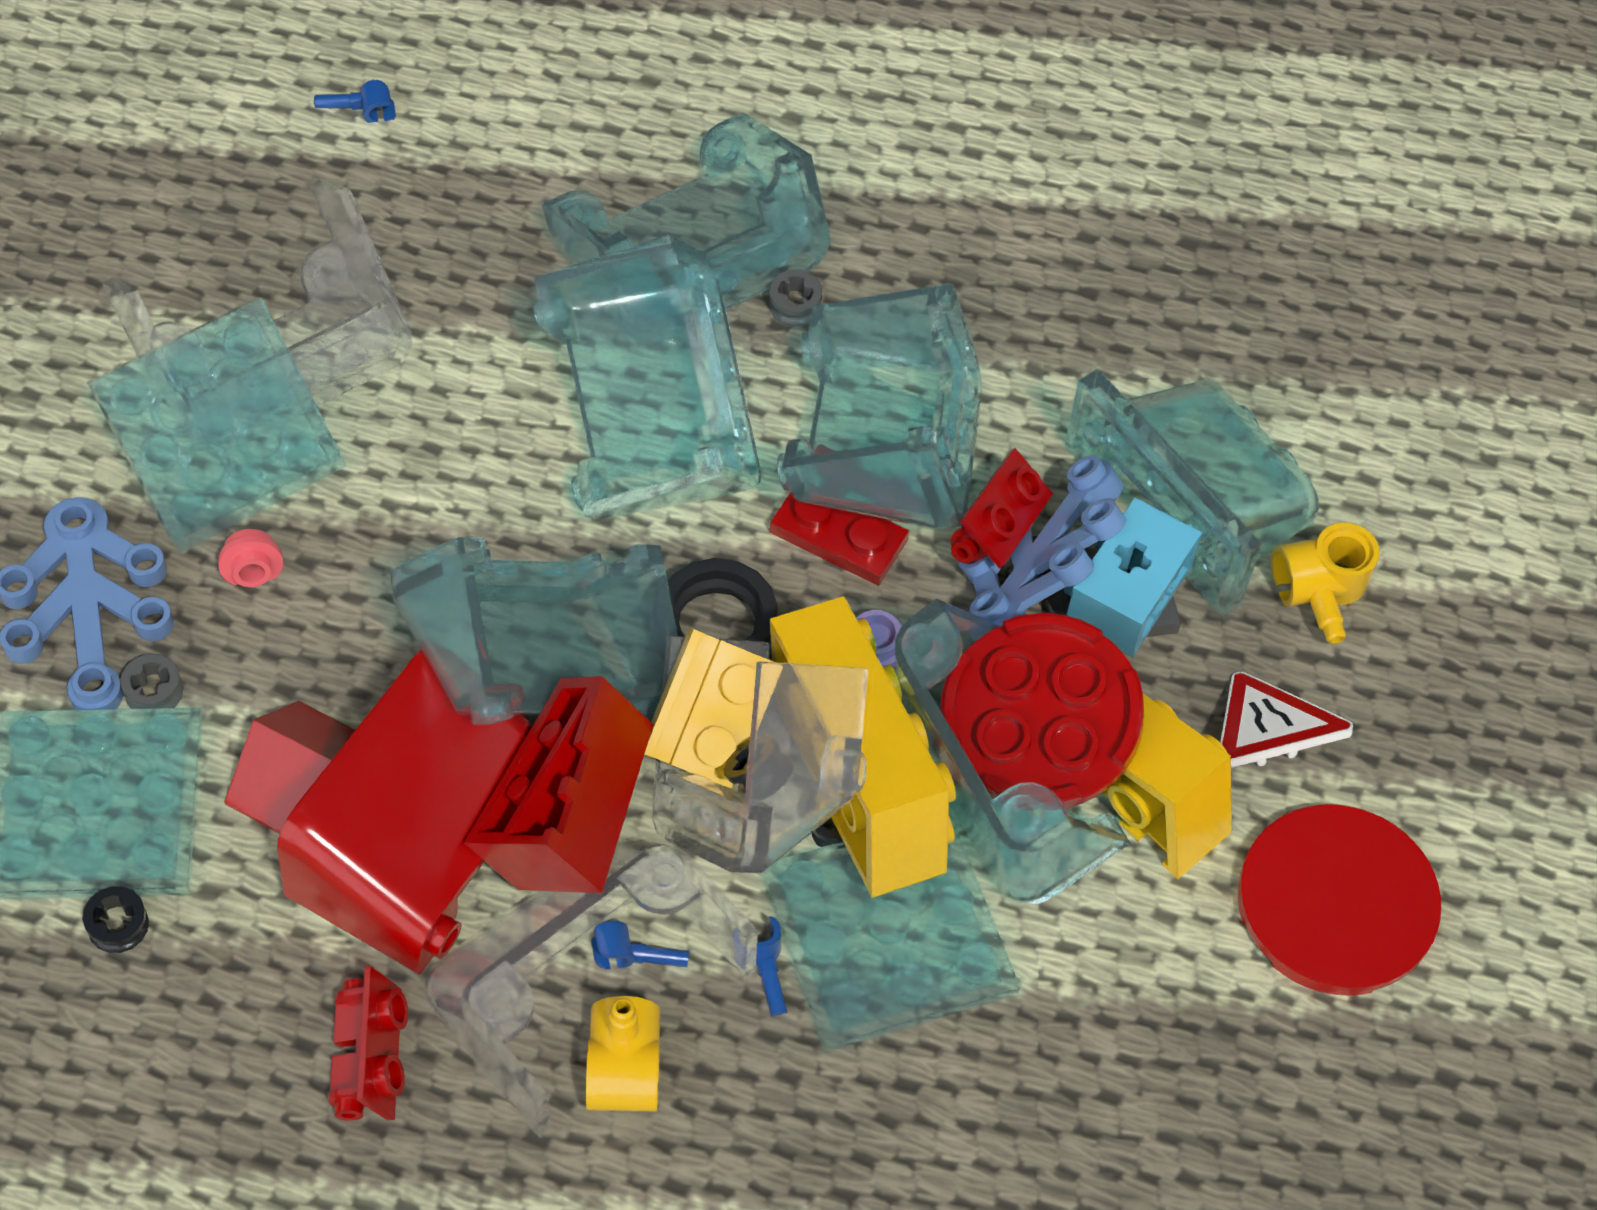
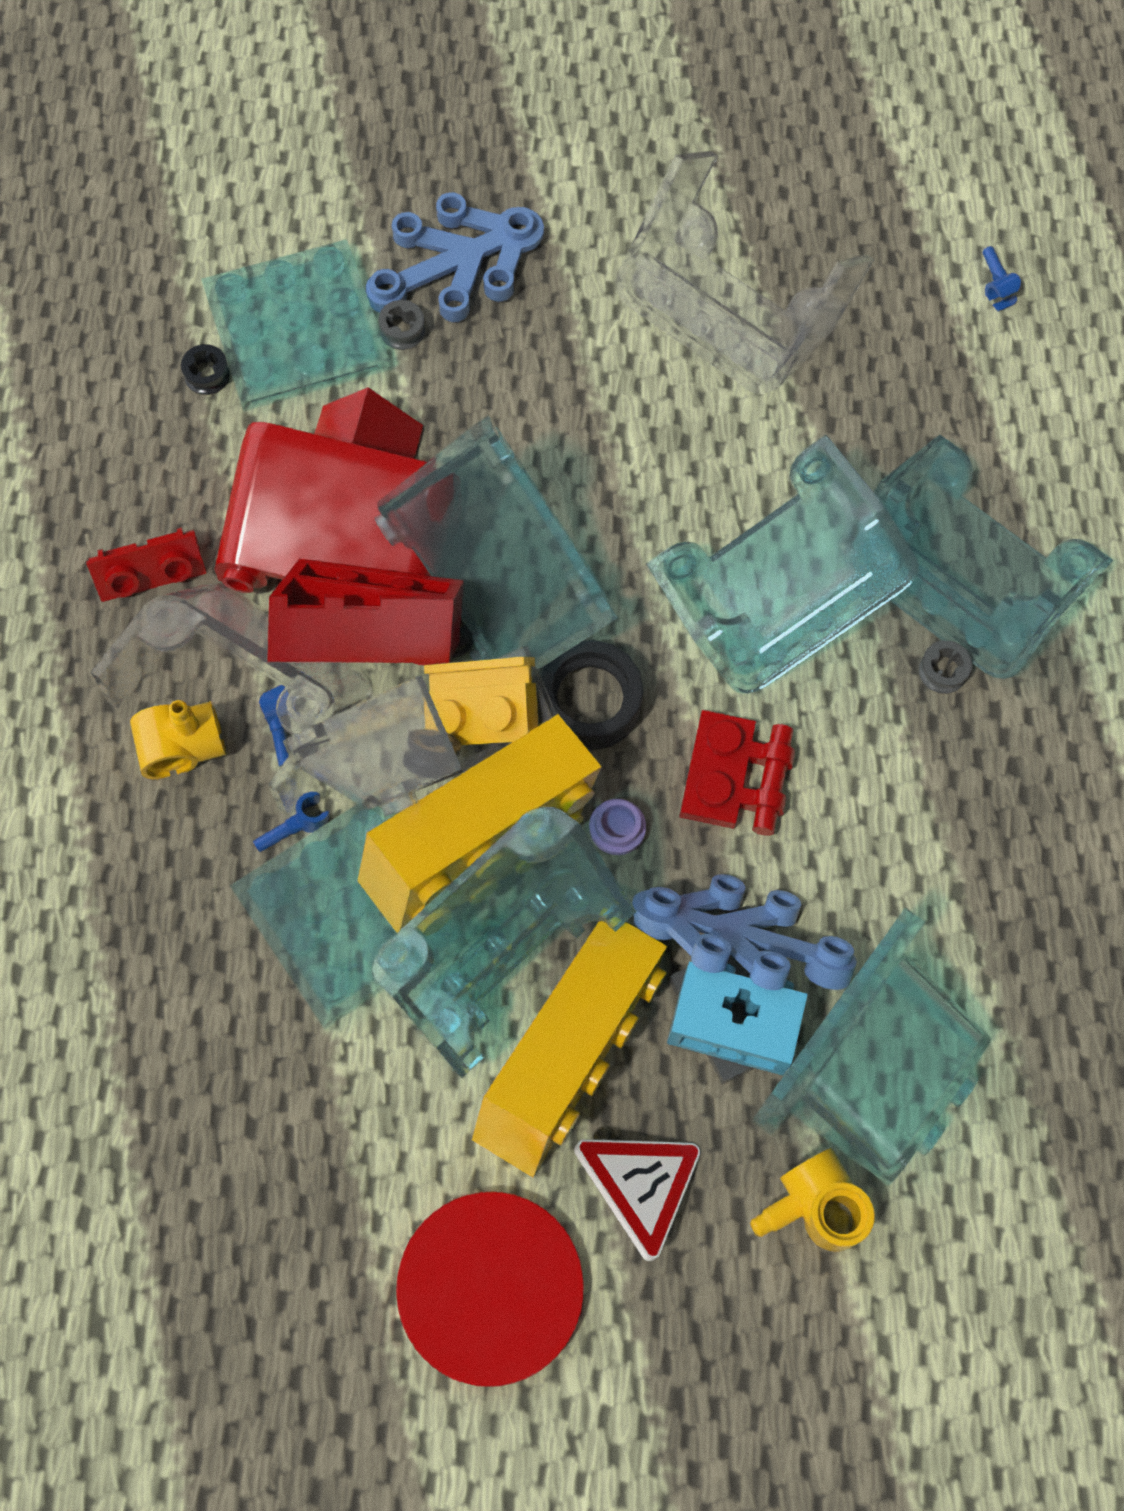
camera: 75 degrees right, 10 degrees up
(217, 424) = (622, 275): clear light blue plate -> none
(249, 548) = (528, 348): coral plate -> none
(890, 409) = (836, 777): clear light blue windscreen -> none
(1001, 513) = (773, 892): red hinge -> none
(1046, 707) = (545, 963): red tile -> none

